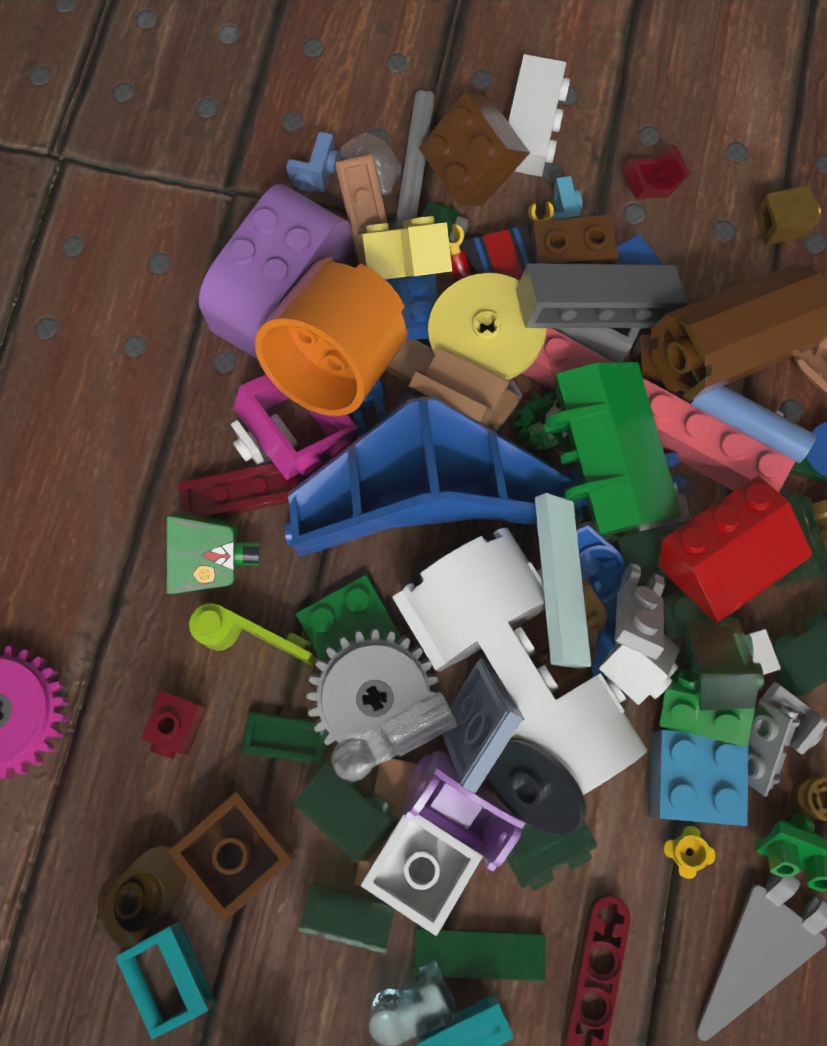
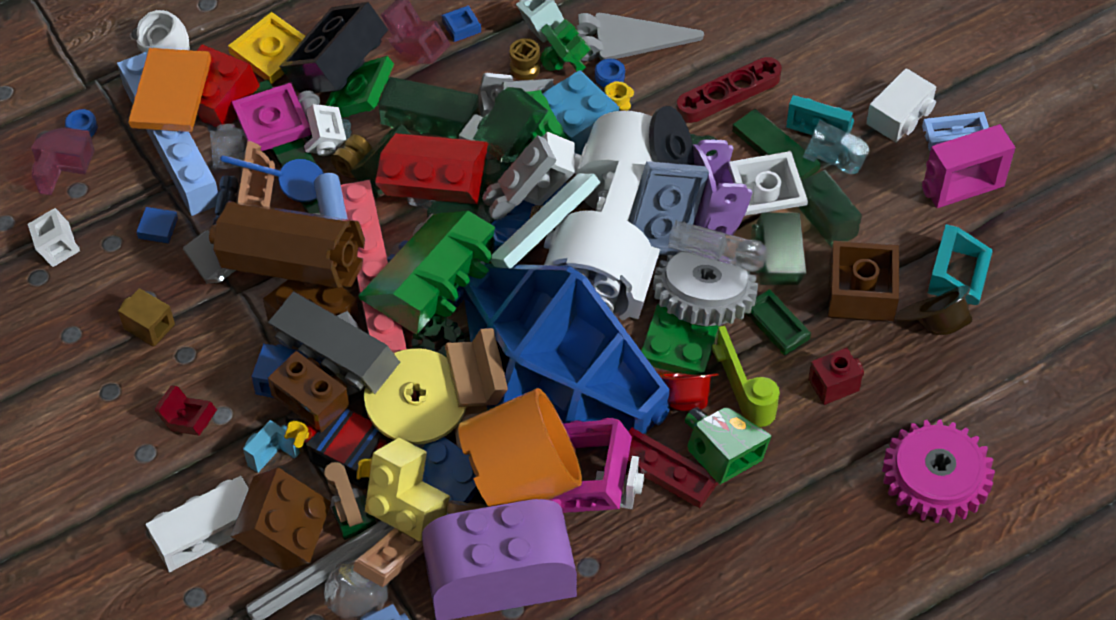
camera: 135 degrees left, 20 degrees down
(304, 577) = (687, 389): none -> red piece
(453, 211) = (340, 486): none -> medium nougat plate
(730, 878) = (609, 71): none -> blue tile

